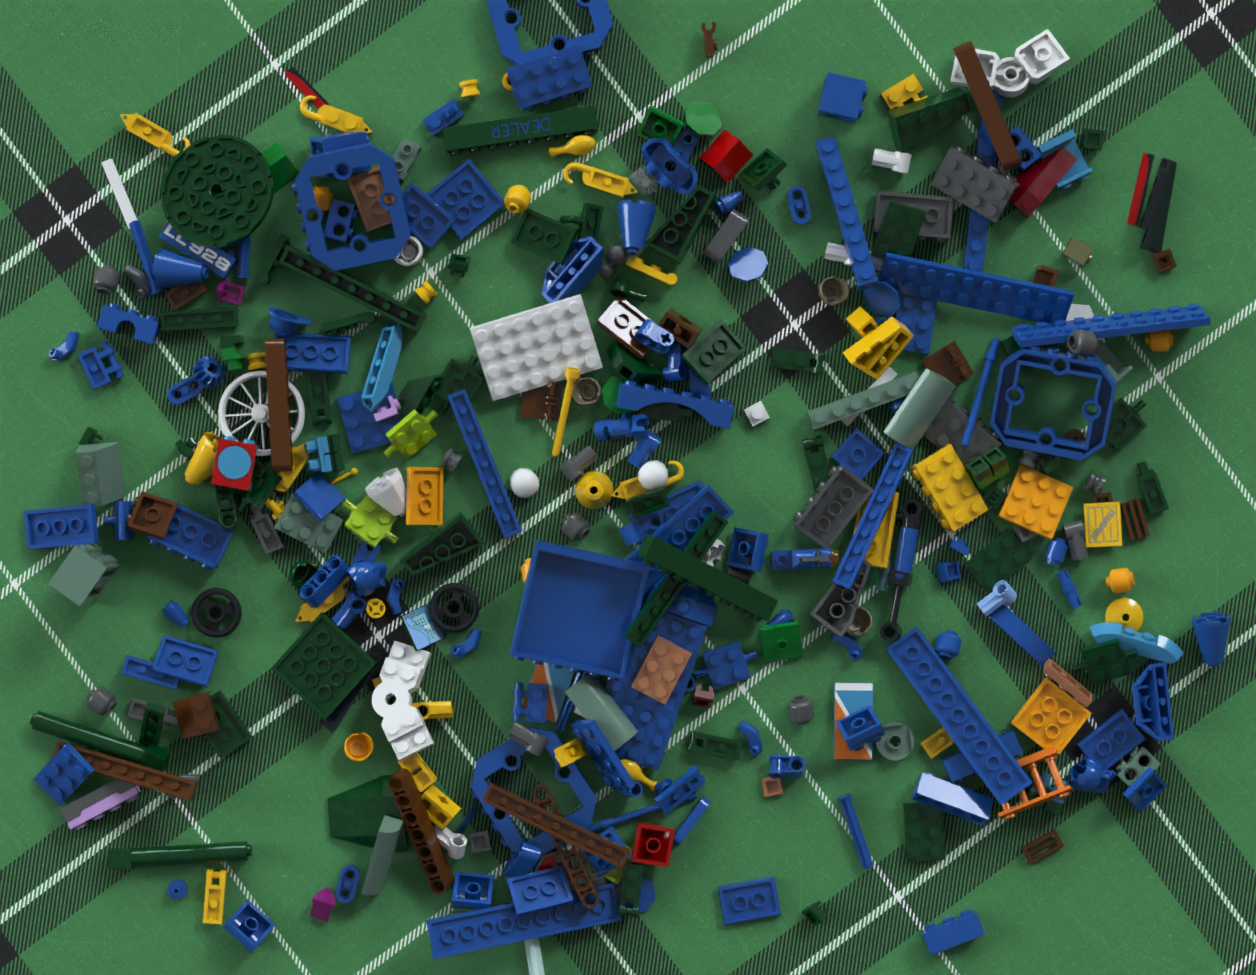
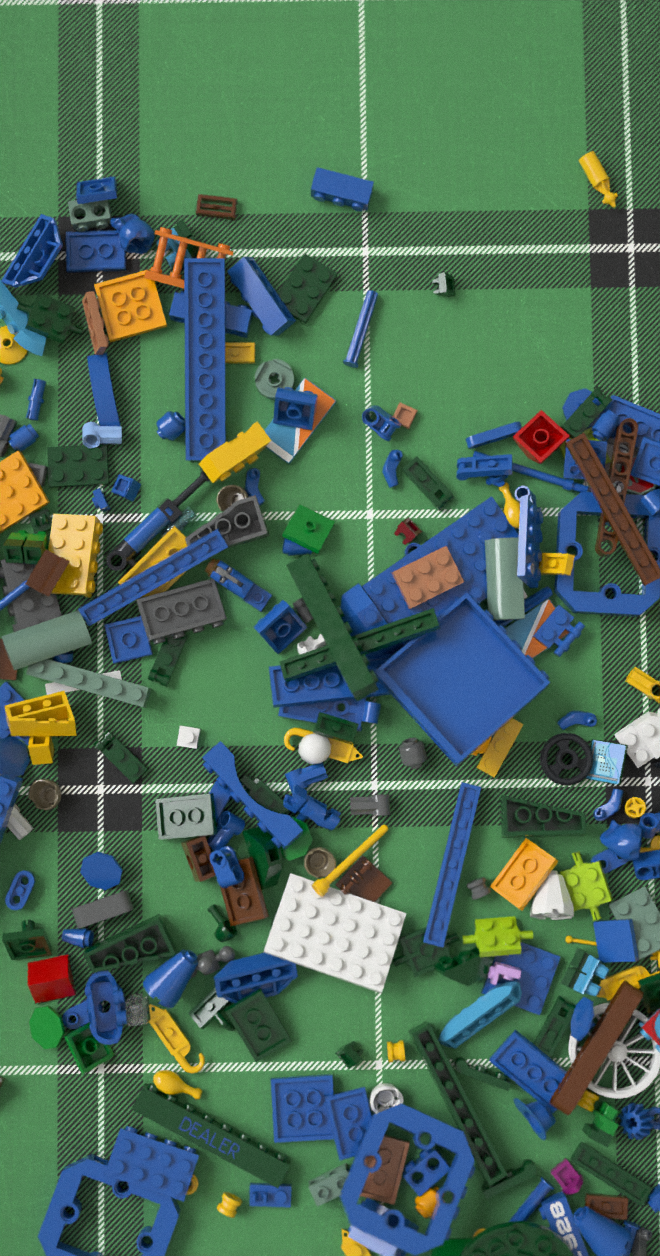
camera: 145 degrees left, 5 degrees down
(304, 418) = (582, 1019): none -> blue piece
(511, 579) = (499, 747): none -> yellow plate
(517, 199) = (257, 1075): yellow head -> none
(524, 482) = (429, 822): white hair -> none
(532, 741) = (581, 596): dark grey piece -> none
(604, 487) = (363, 771): yellow cone -> none
(608, 889) = (605, 426): none -> blue brick
(652, 271) = (187, 925): yellow plate -> none
(726, 664) = (369, 543): blue plate -> none
(749, 900) = (491, 335): blue tile -> none
(801, 709) = (333, 460): dark grey head -> none
(880, 658) = (234, 454): none -> yellow wedge
(956, 460) = (47, 573): none -> reddish brown panel

